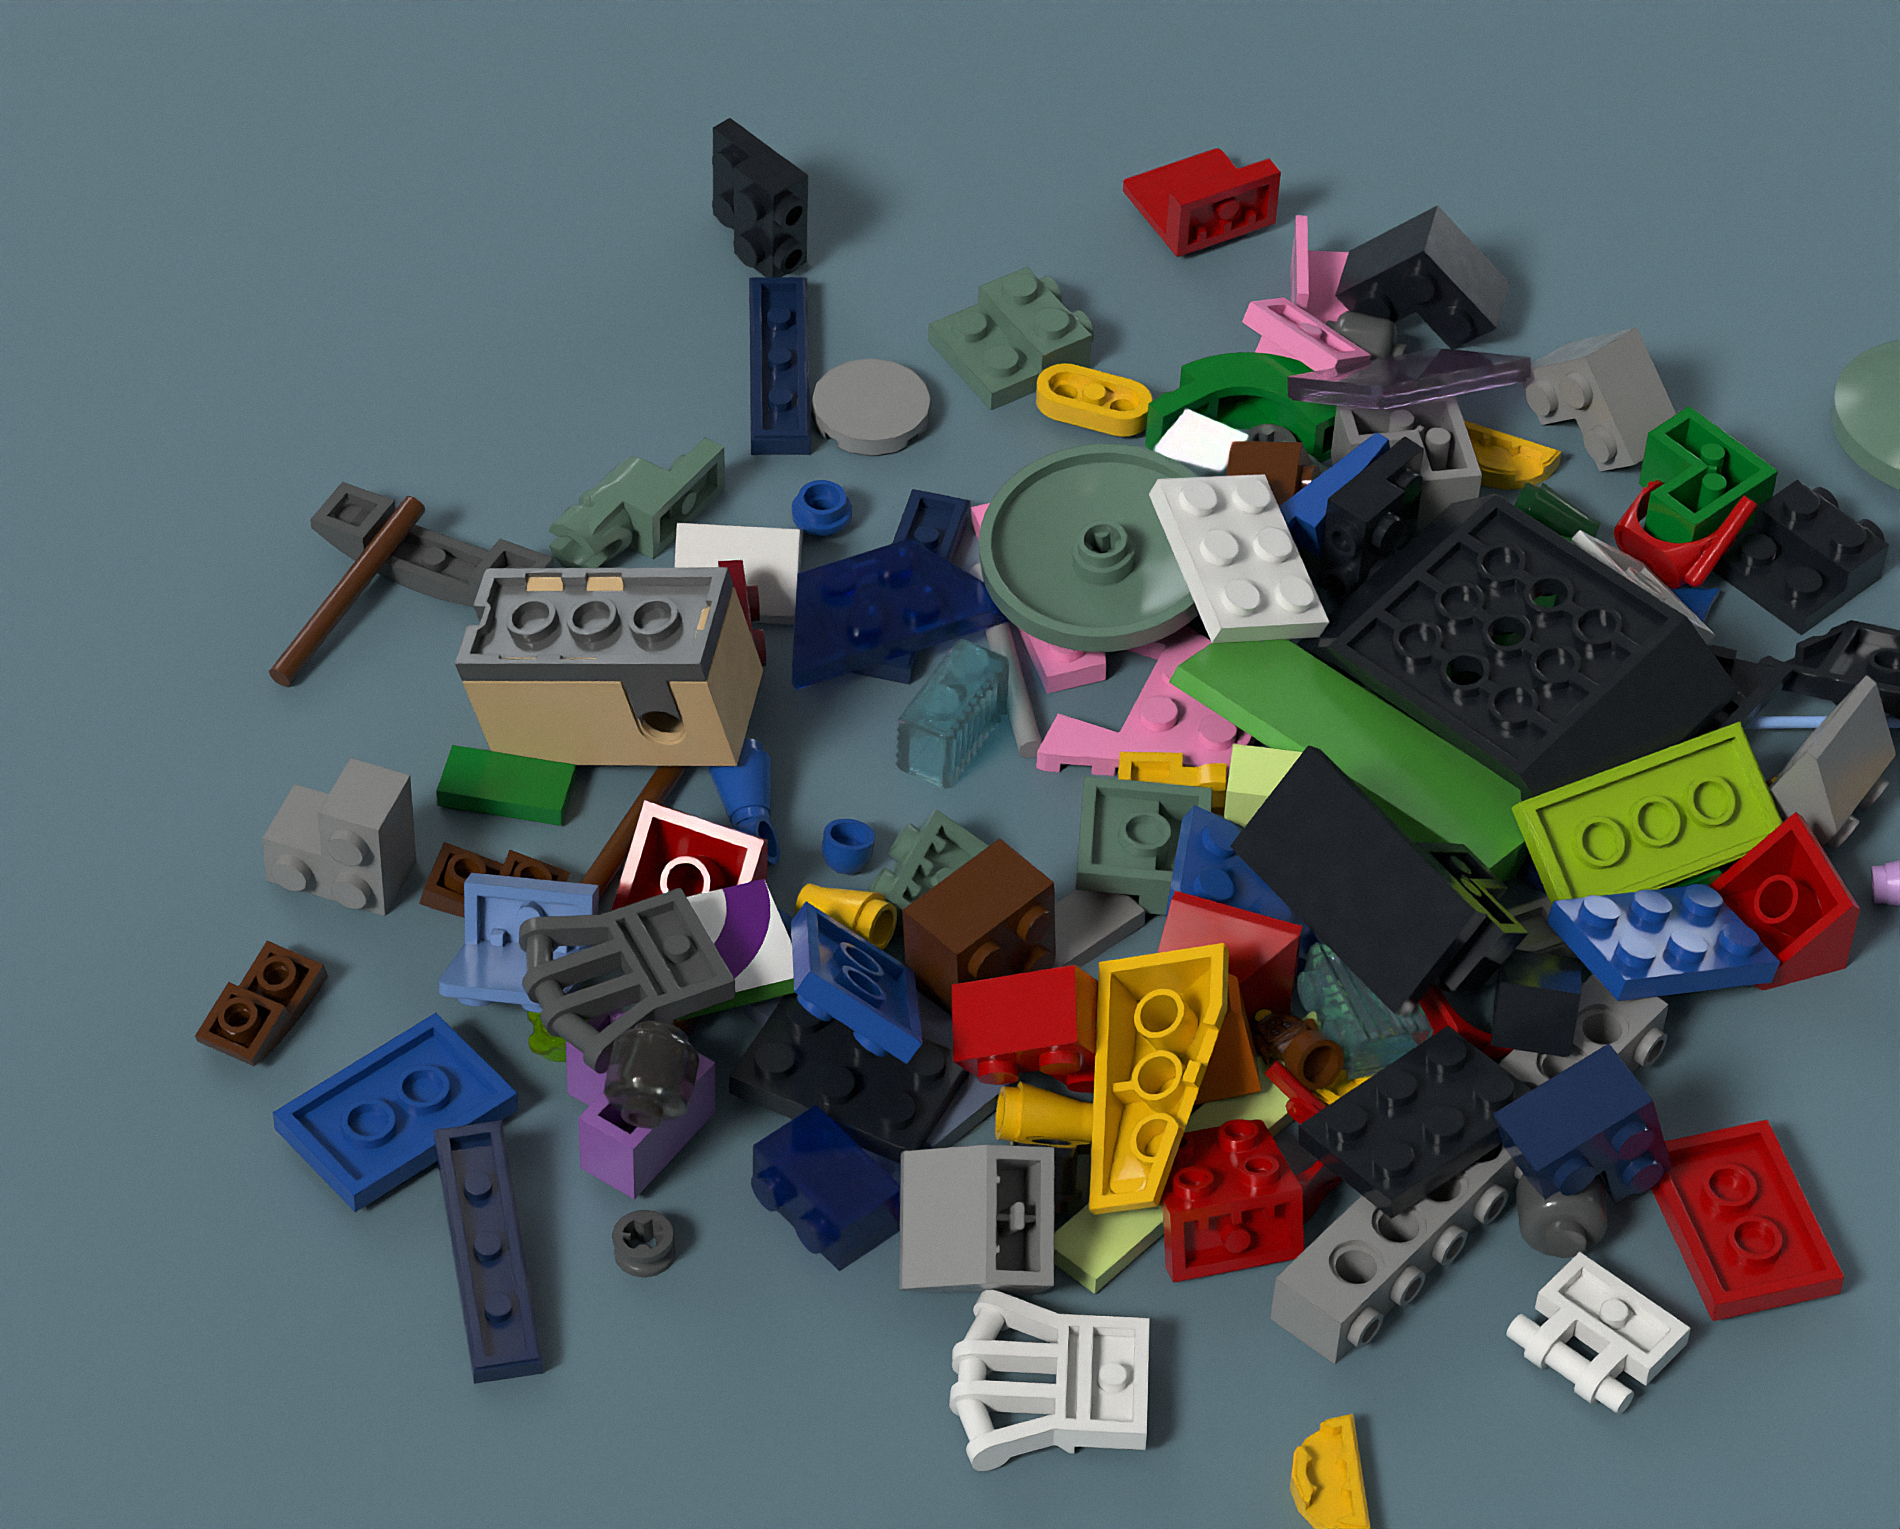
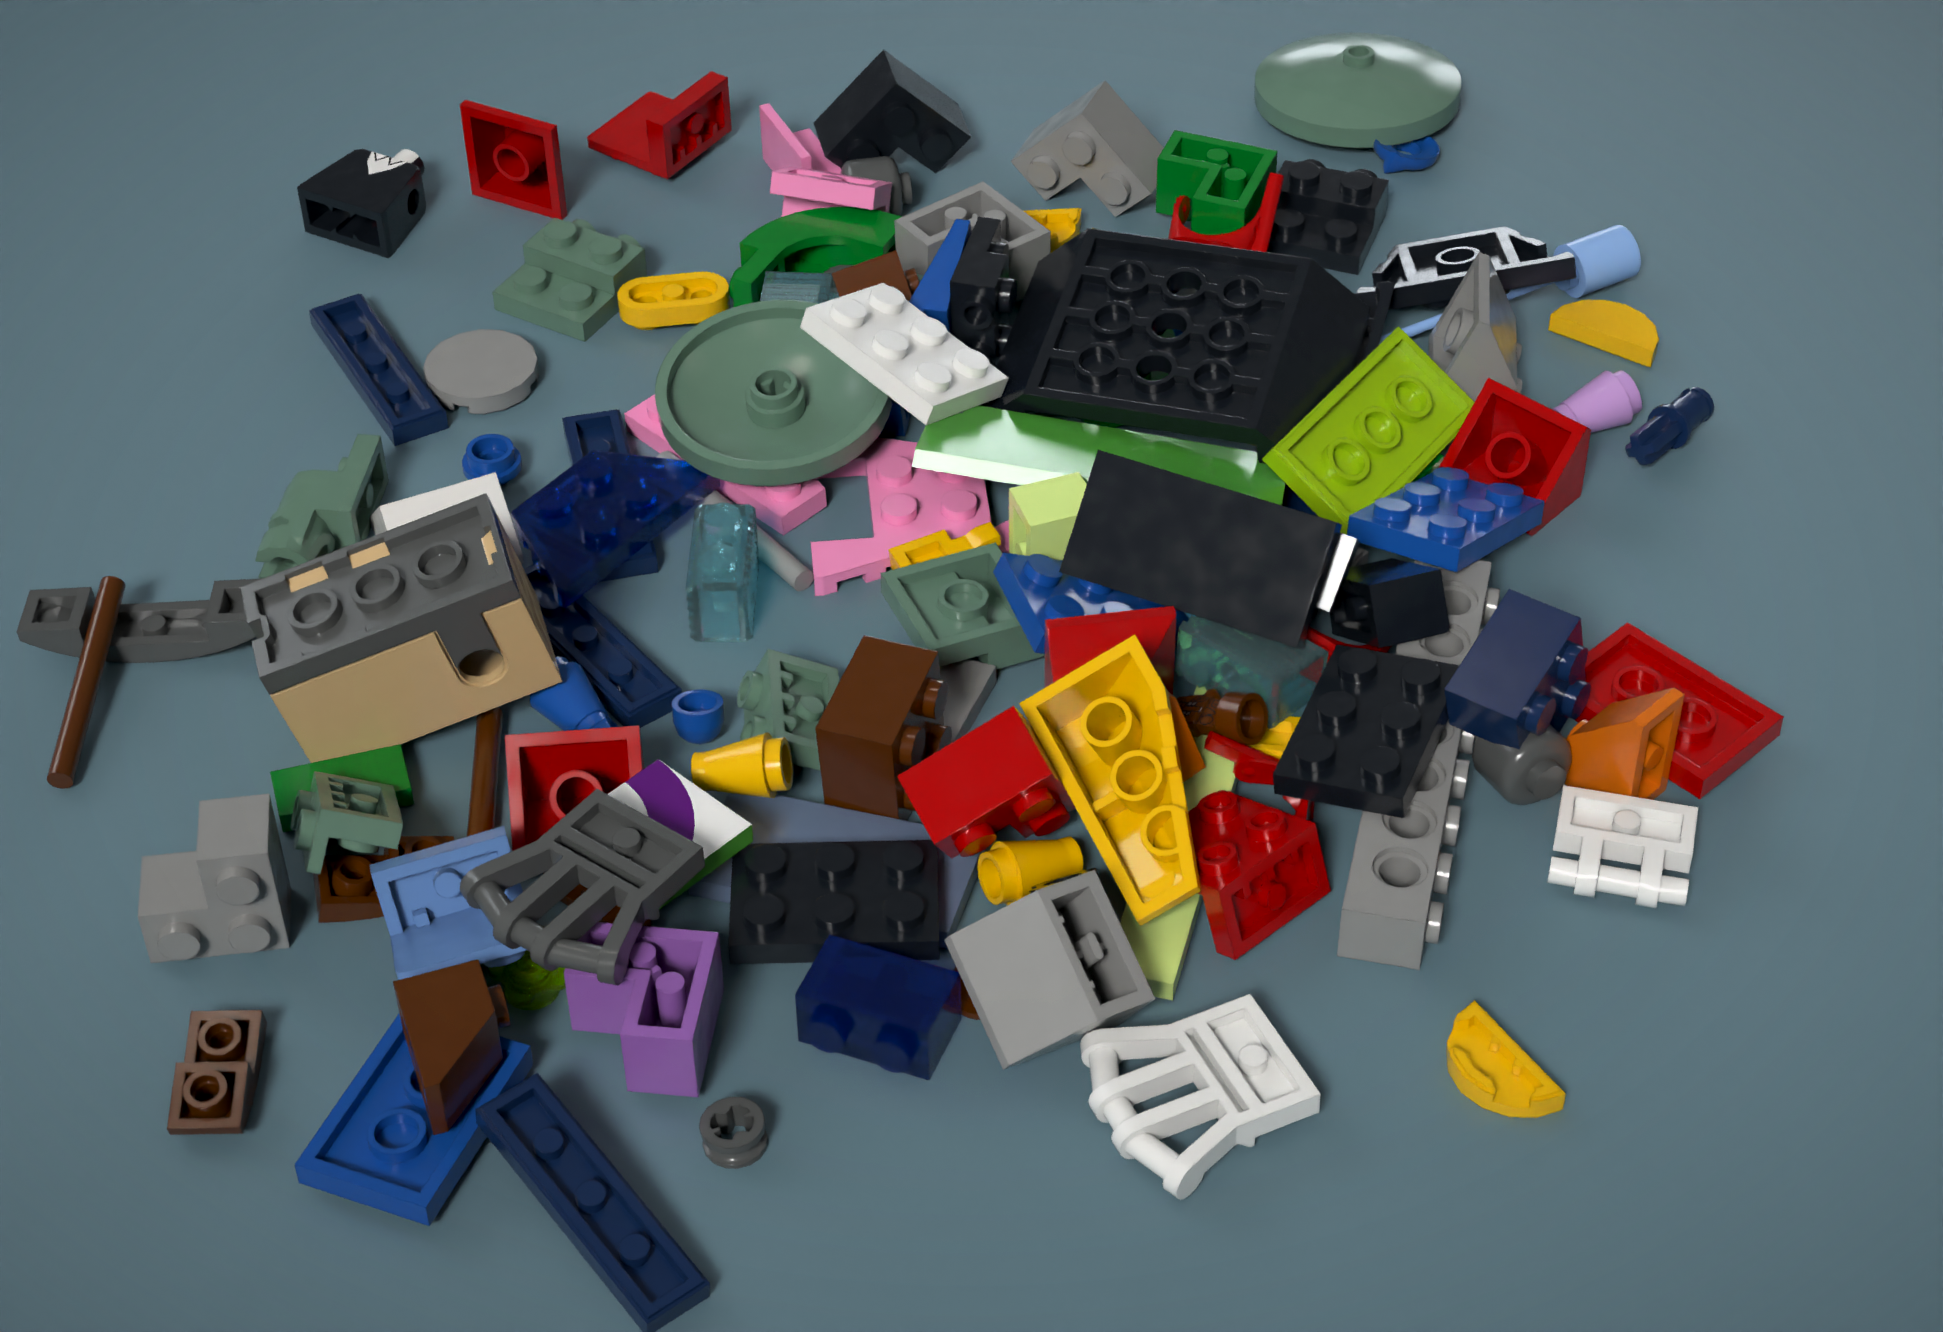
camera: 25 degrees left, 5 degrees down
(447, 1059) = (451, 1036): none -> reddish brown slope
(483, 815) = (347, 809): none -> sand green bracket
(651, 1074) = (676, 959): clear smoke head -> none
(760, 200) = (287, 241): black plate -> none
(799, 744) = (620, 673): none -> dark blue tile
(856, 984) = (811, 811): blue plate -> none
(871, 174) = (365, 200): none -> black torso
(1028, 183) = (513, 159): none -> red slope
(1408, 378) = (938, 184): clear purple tile -> none
(1658, 1245) = (1627, 746): none -> orange slope

